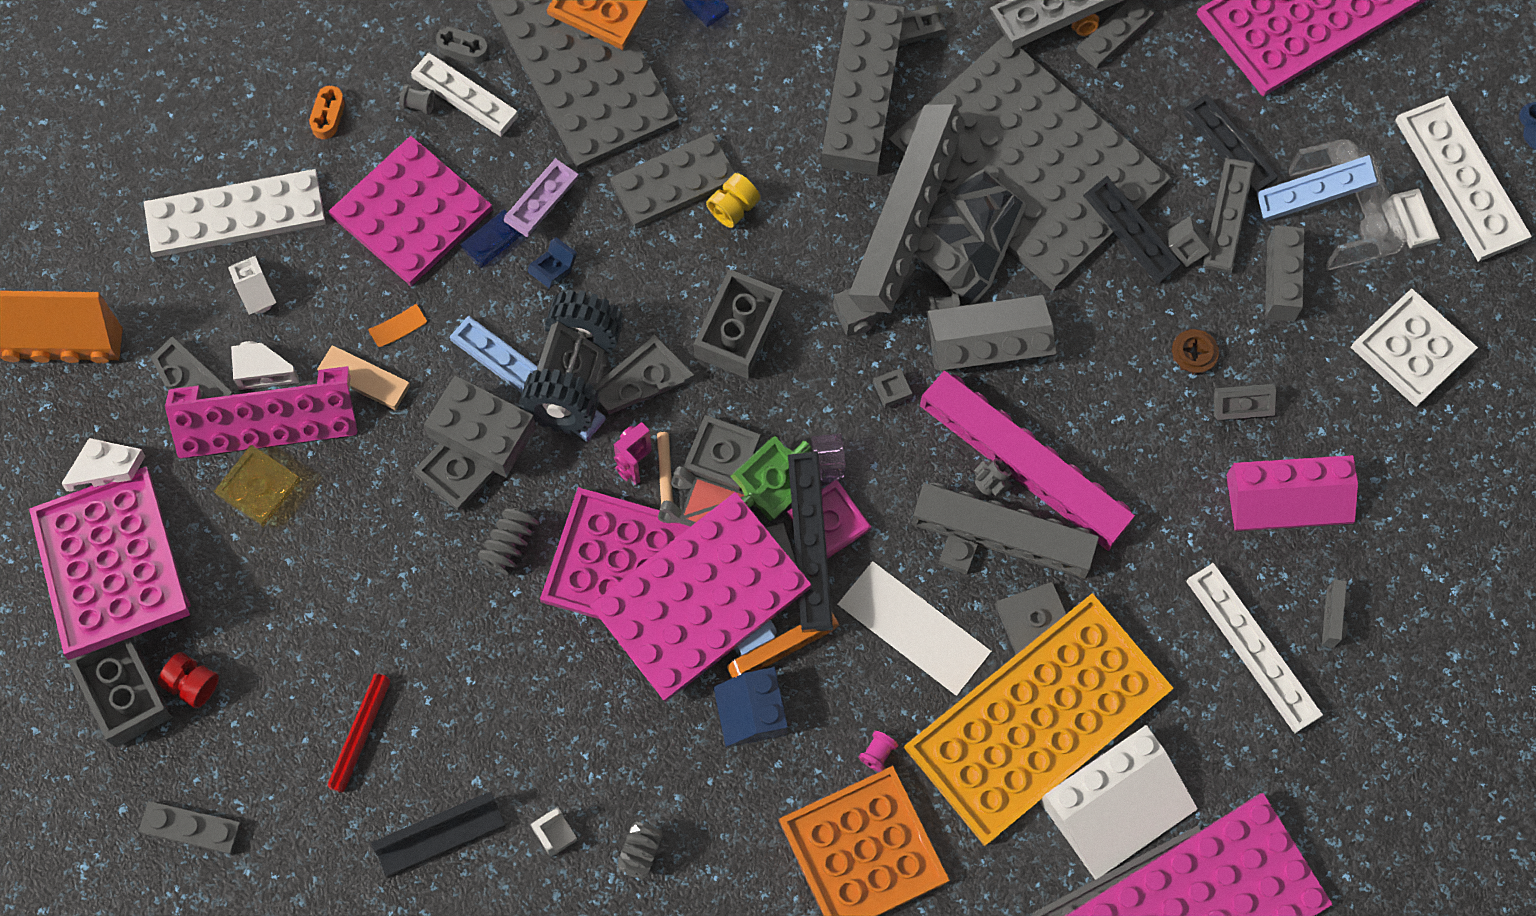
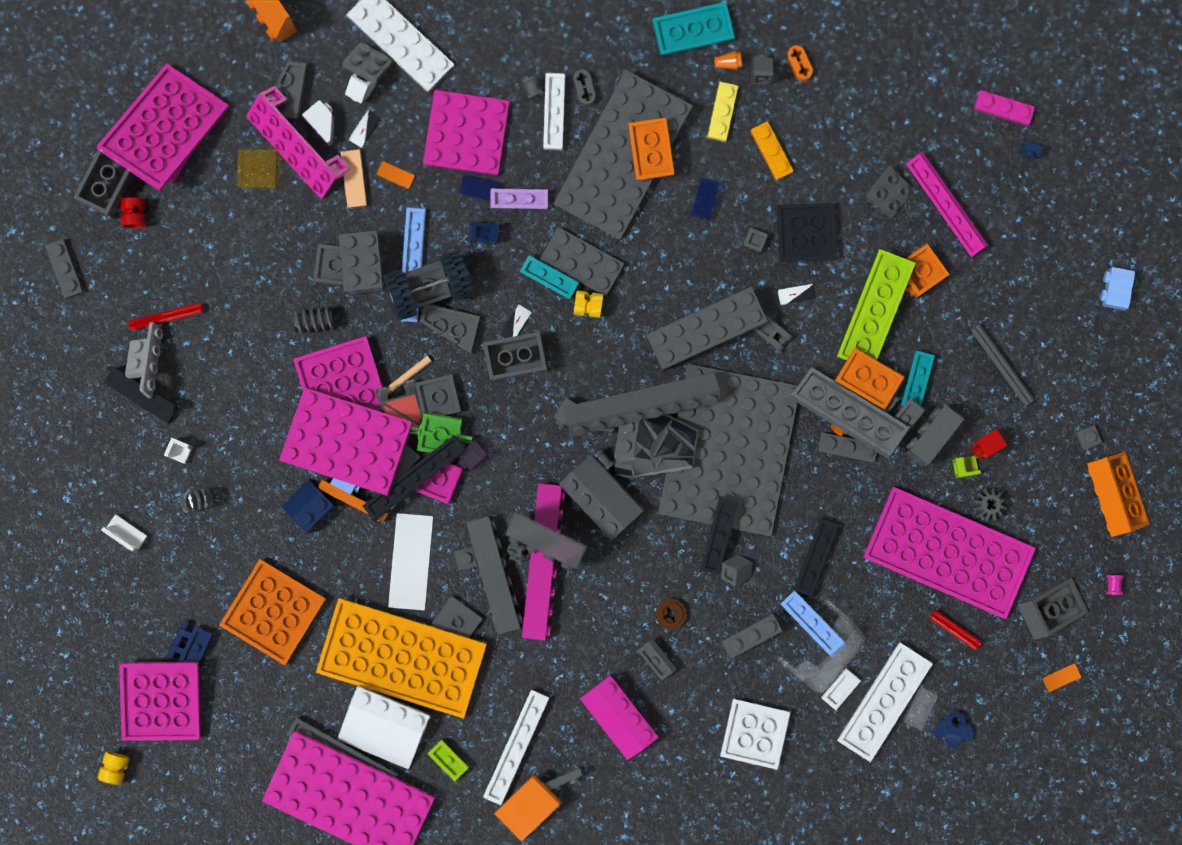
camera: 60 degrees right, 15 degrees up
(103, 463) = (214, 81): white wing -> none
(231, 261) = (367, 62): none -> dark grey plate
(310, 326) = (364, 128): none -> sticker
(332, 114) = (490, 40): orange beam -> none
(395, 793) = (143, 359): none -> light grey bracket
(630, 449) = (405, 349): dark pink bracket -> none
(665, 224) = (549, 277): none -> teal plate
(692, 303) = (515, 322): none -> sticker
(878, 751) = (329, 586): dark pink bush -> none
(892, 388) = (536, 463): dark grey plate -> none
(1009, 418) = (546, 541): none -> dark grey slope
(1218, 746) = (448, 760): none -> lime plate
(1228, 215) = (768, 583): dark grey tile -> none
(1348, 681) = (527, 808): none -> orange tile
(1418, 51) = (955, 630): none -> red axle
(1495, 144) = (920, 708): none -> clear plate

